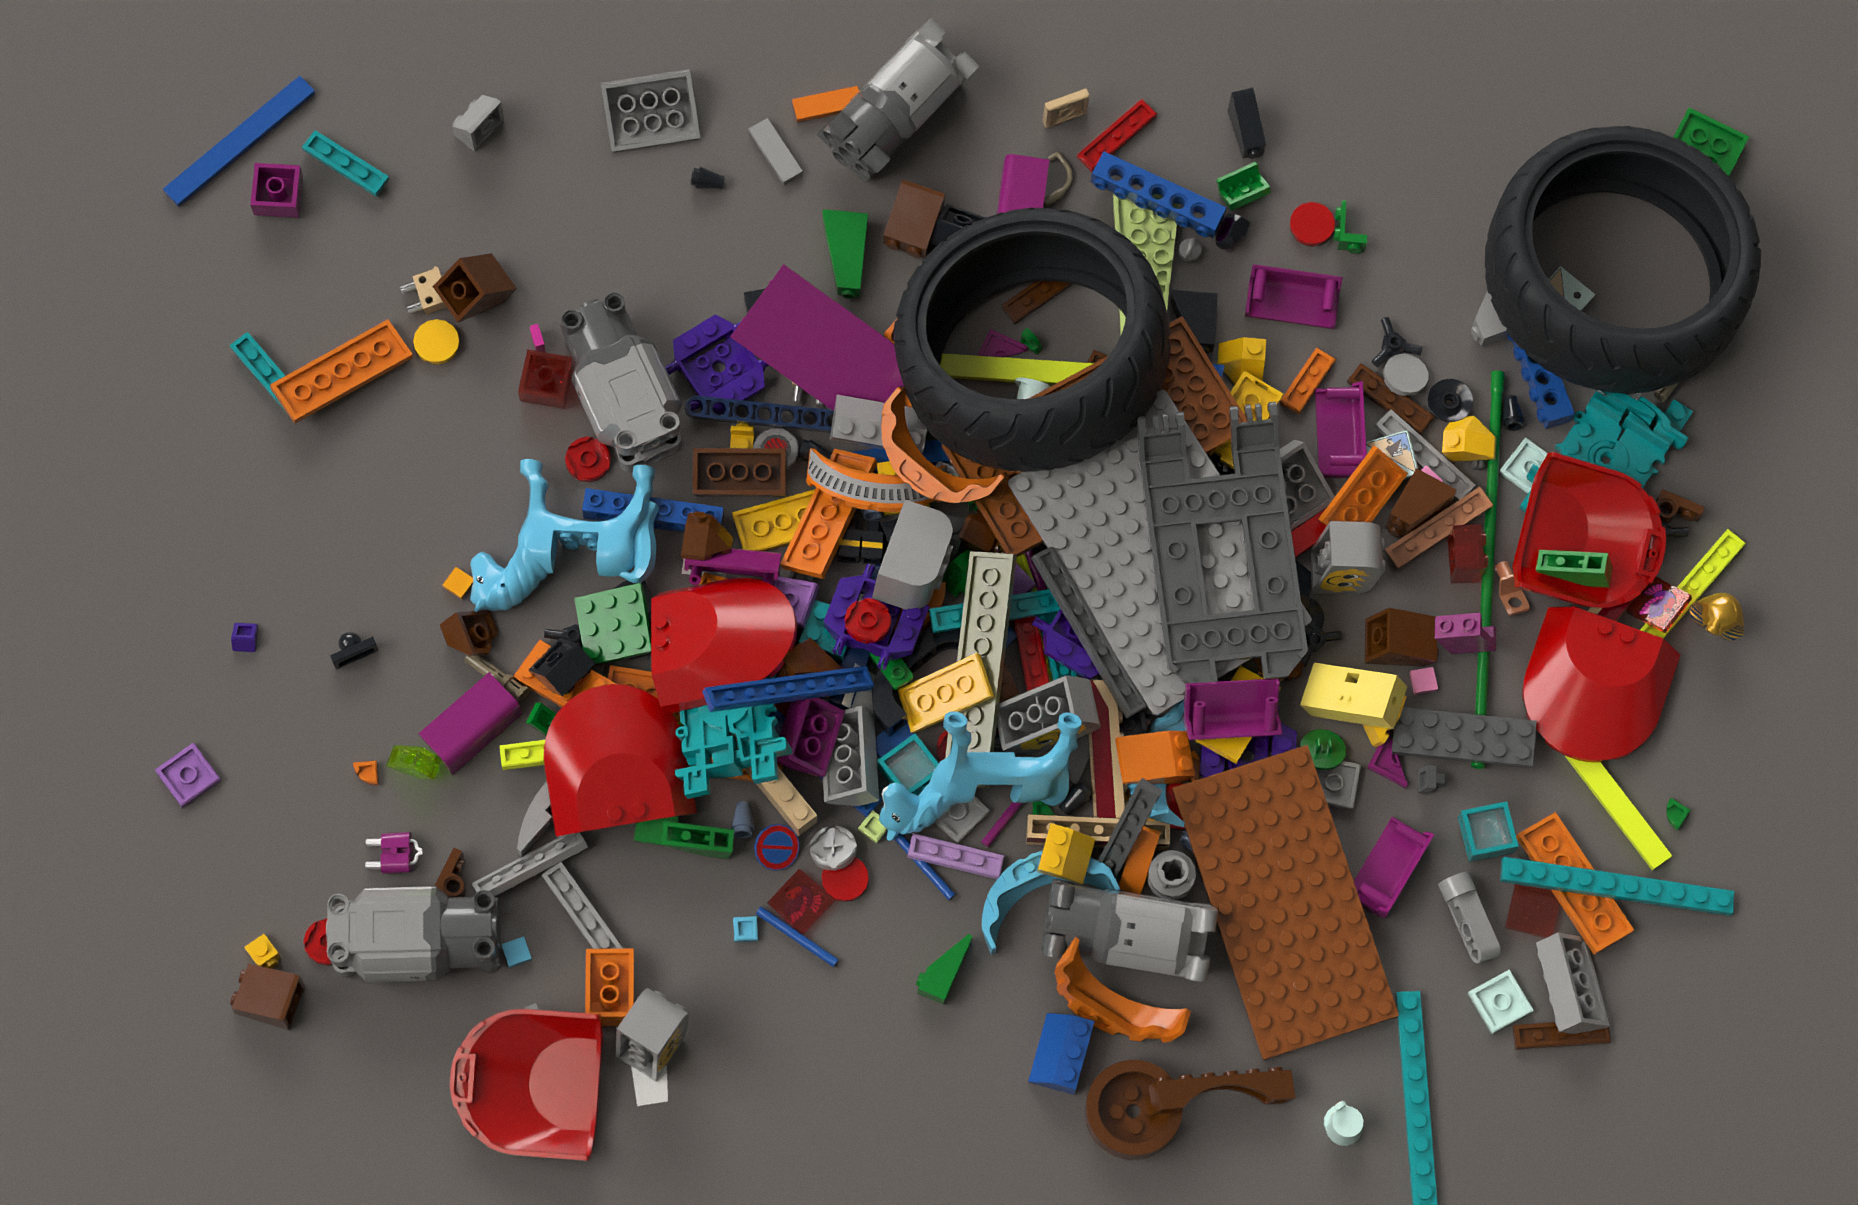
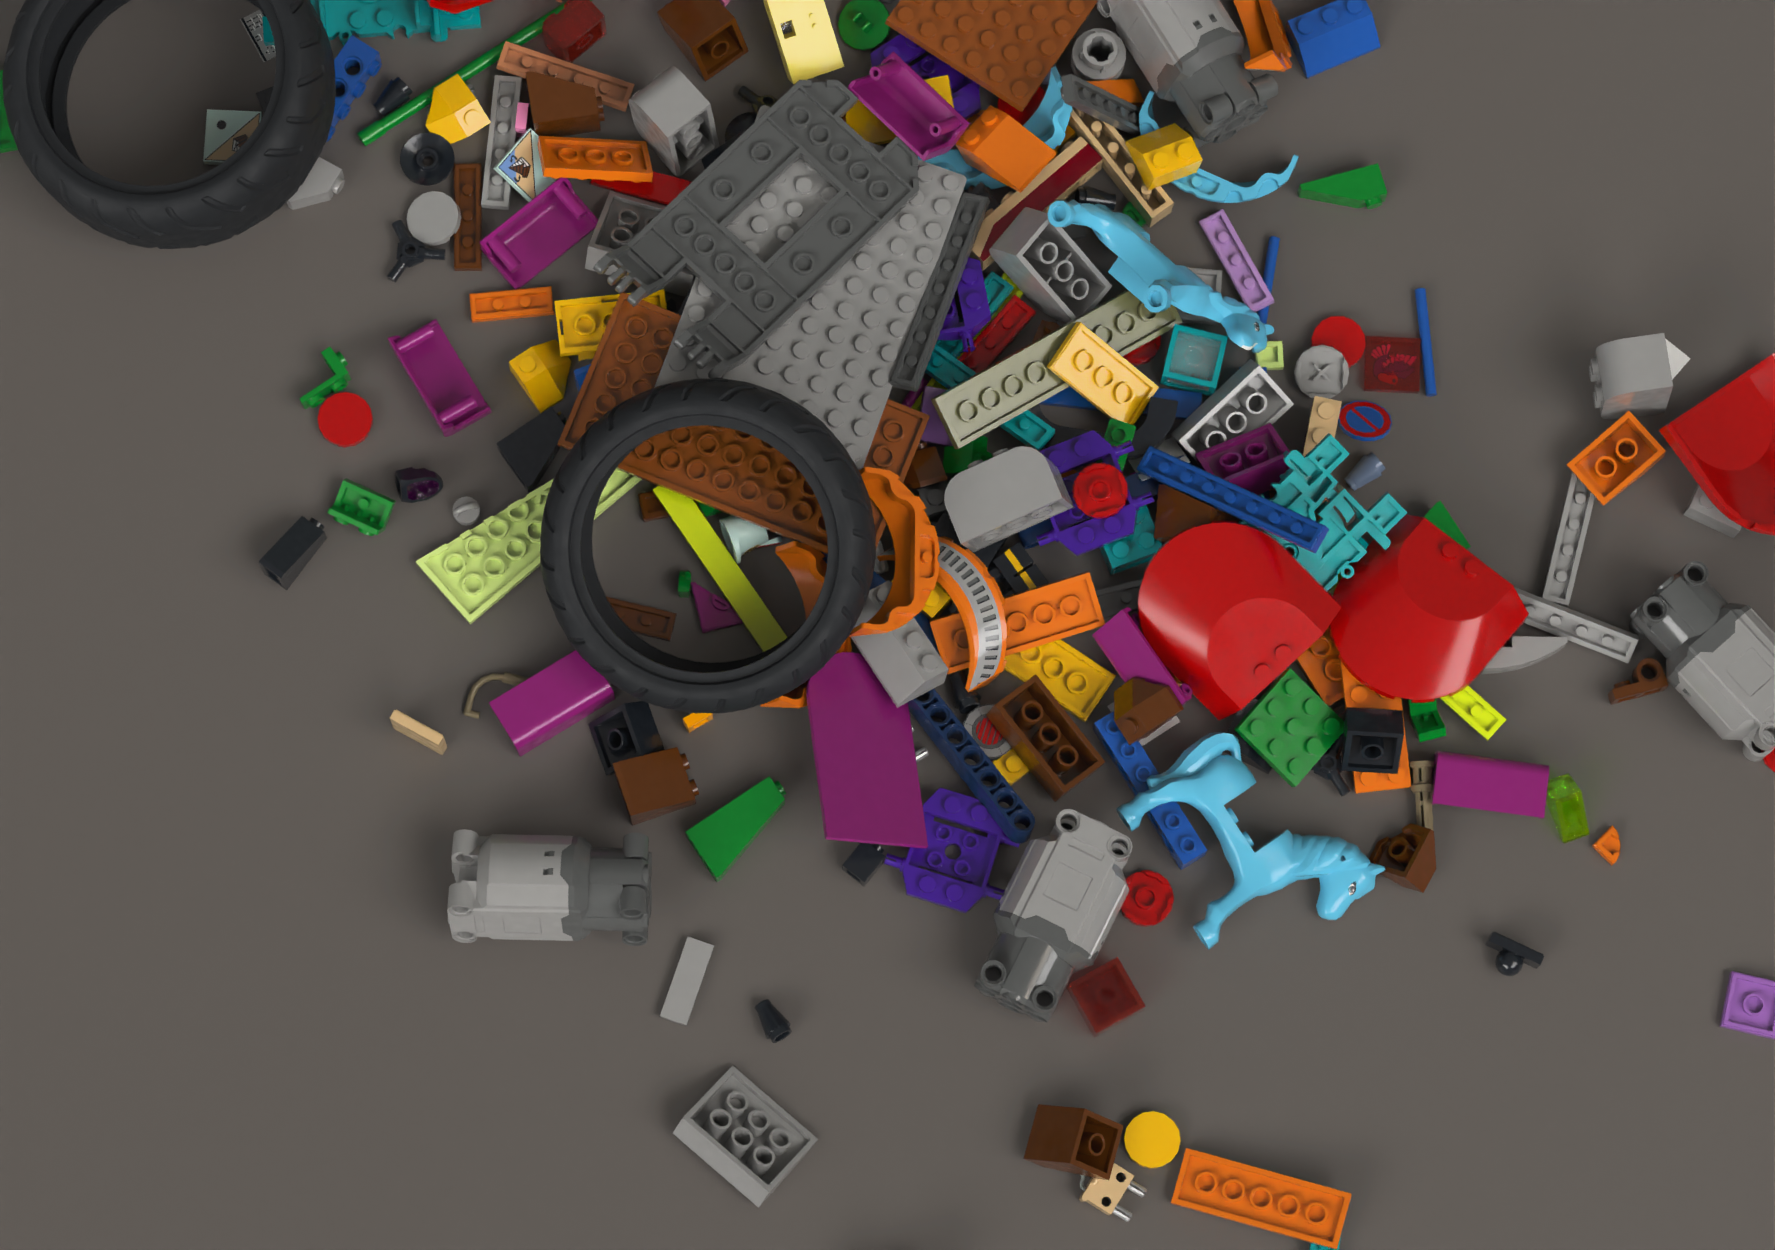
camera: 130 degrees left, 5 degrees up
(244, 637) = (1583, 1068): dark purple slope -> none
(395, 853) = (1660, 753): magenta piece -> none
(458, 583) = (1365, 915): light orange tile -> none
(516, 952) = (1652, 572): medium azure tile -> none
(537, 338) = (1070, 1043): dark pink tile -> none
(698, 839) = (1421, 487): green slope -> none
(745, 929) = (1458, 392): medium azure tile -> none
(800, 595) = (1122, 584): medium lavender tile -> none
(823, 103) = (596, 973): orange tile -> none
(1000, 824) = (1180, 248): magenta bar -> none
(1117, 134) = (401, 671): red tile -> none
(1152, 184) = (419, 507): blue brick -> none
(1520, 463) = (432, 56): light aqua tile -> none

